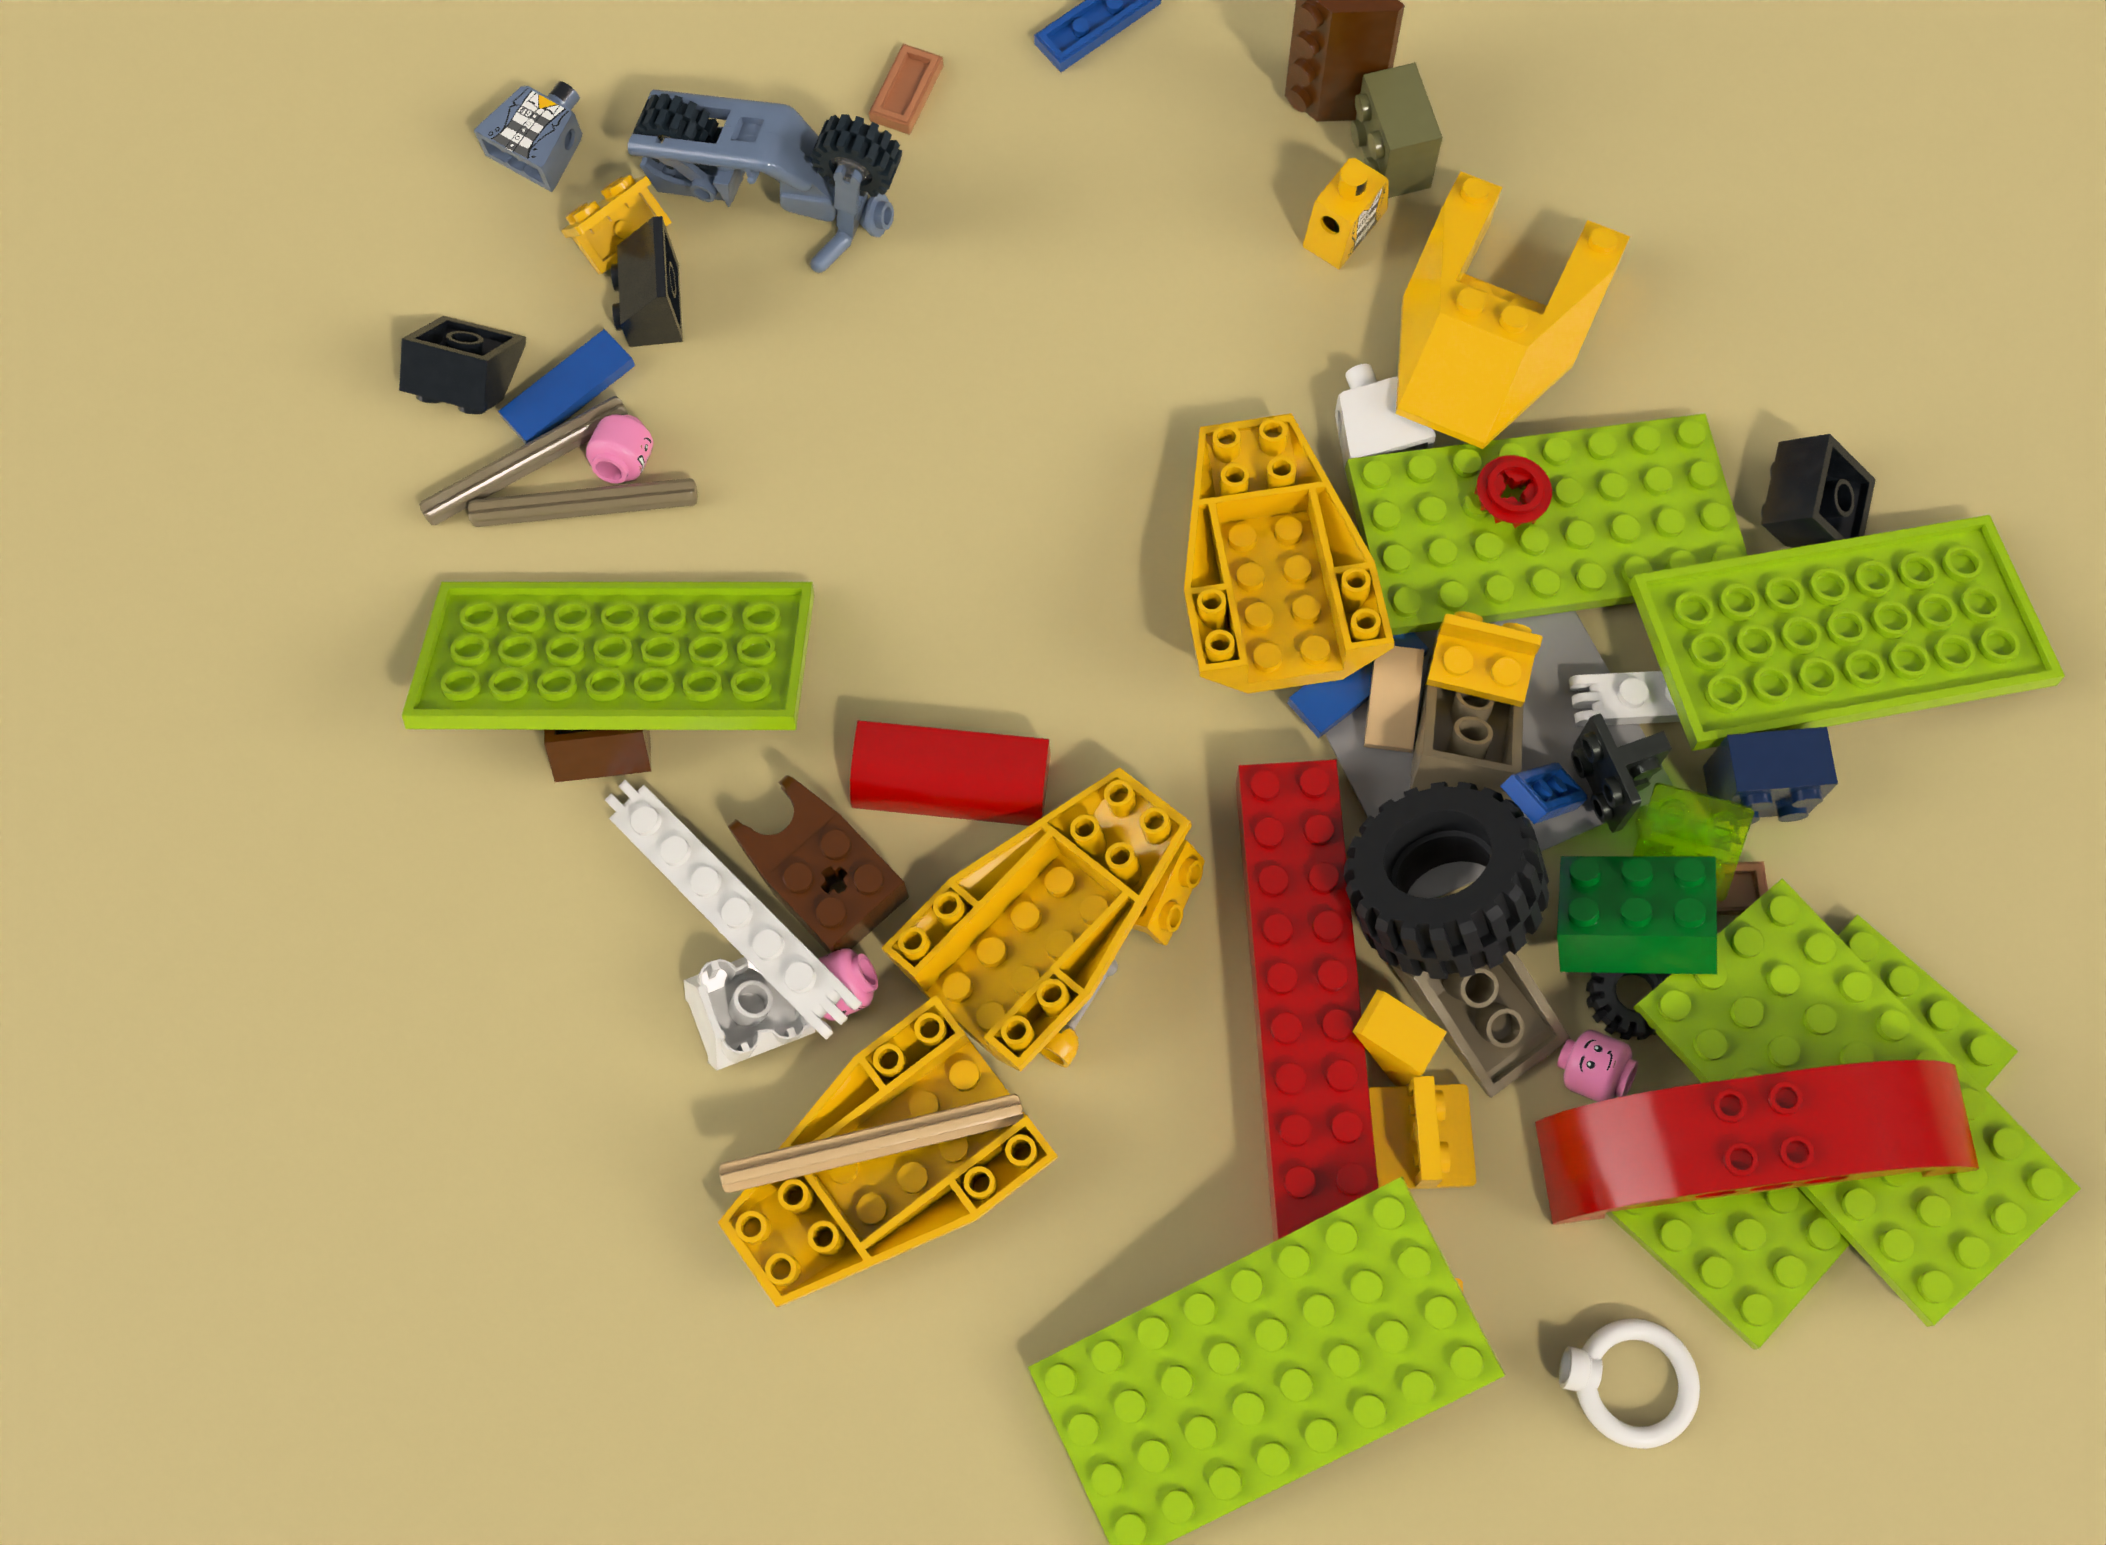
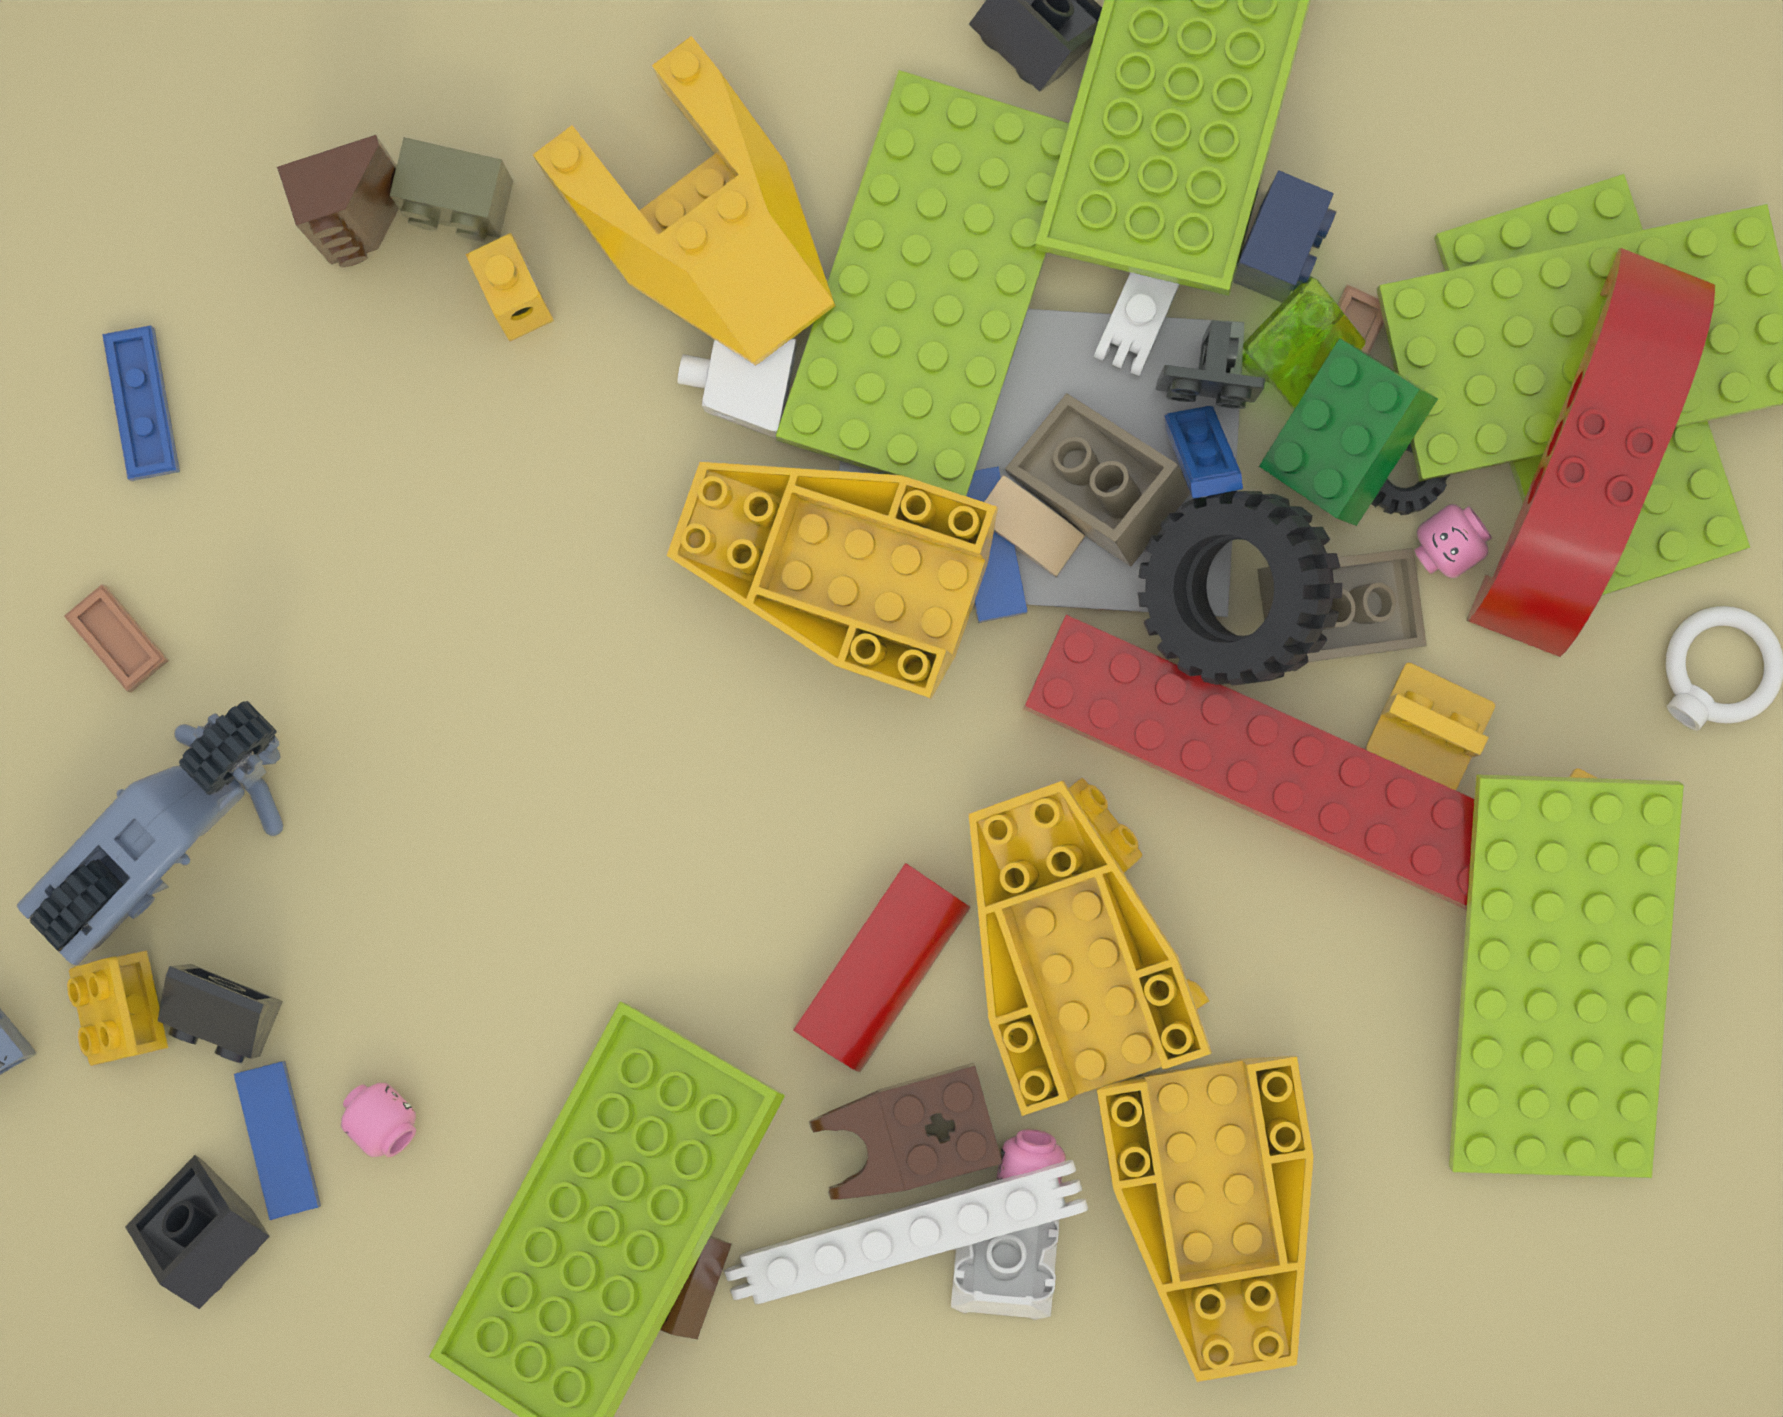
camera: 65 degrees left, 15 degrees up
(518, 463) = (336, 1218): dark tan axle -> none
(583, 502) = (413, 1181): dark tan axle -> none
(870, 1143) = (1200, 1213): tan axle -> none
(1398, 1038) = (1347, 703): yellow slope -> none
(1483, 658) = (1048, 433): yellow bracket -> none
(1516, 473) = (877, 289): red gear -> none

